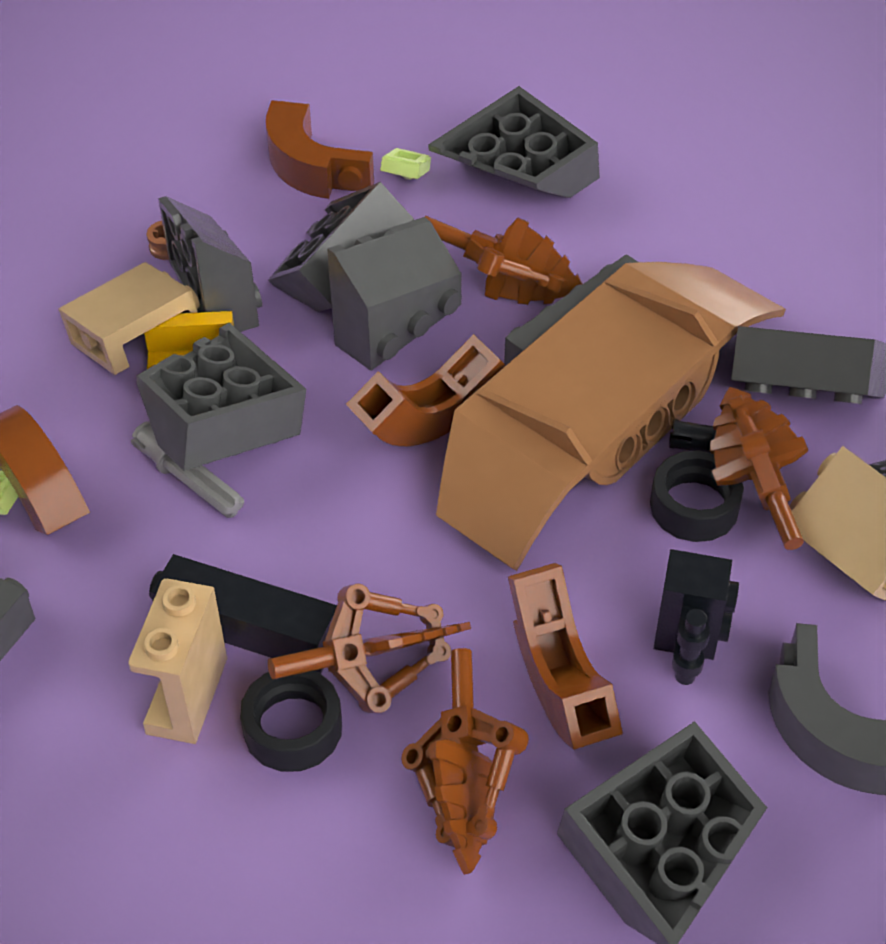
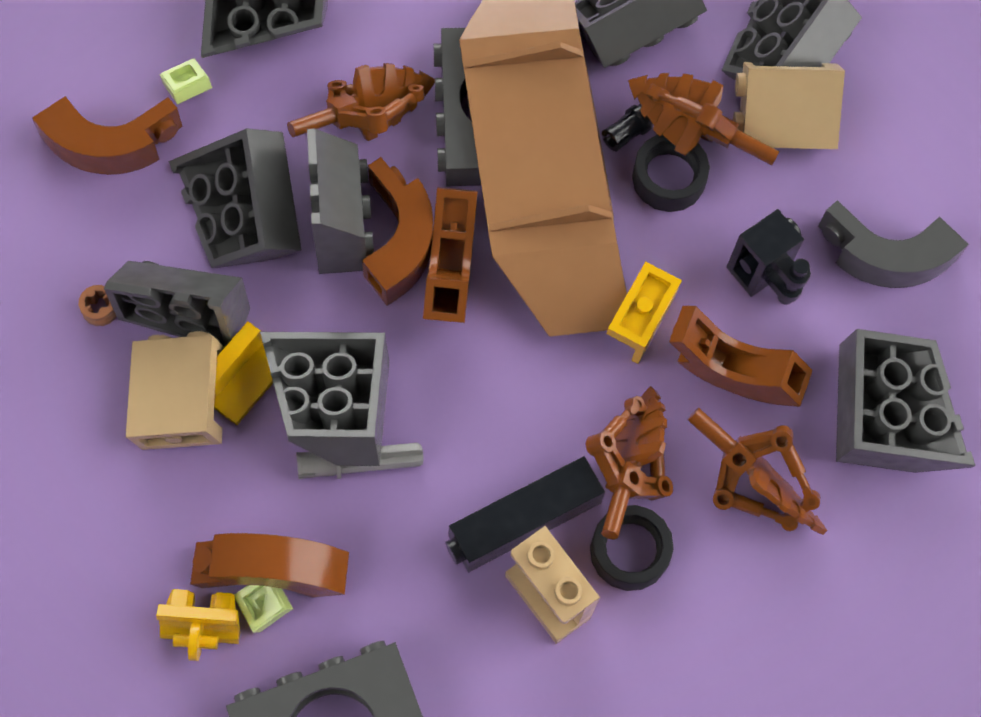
camera: 55 degrees left, 20 degrees up
(419, 360) = (405, 256): none -> dark orange arch
(528, 548) = (644, 309): none -> yellow panel

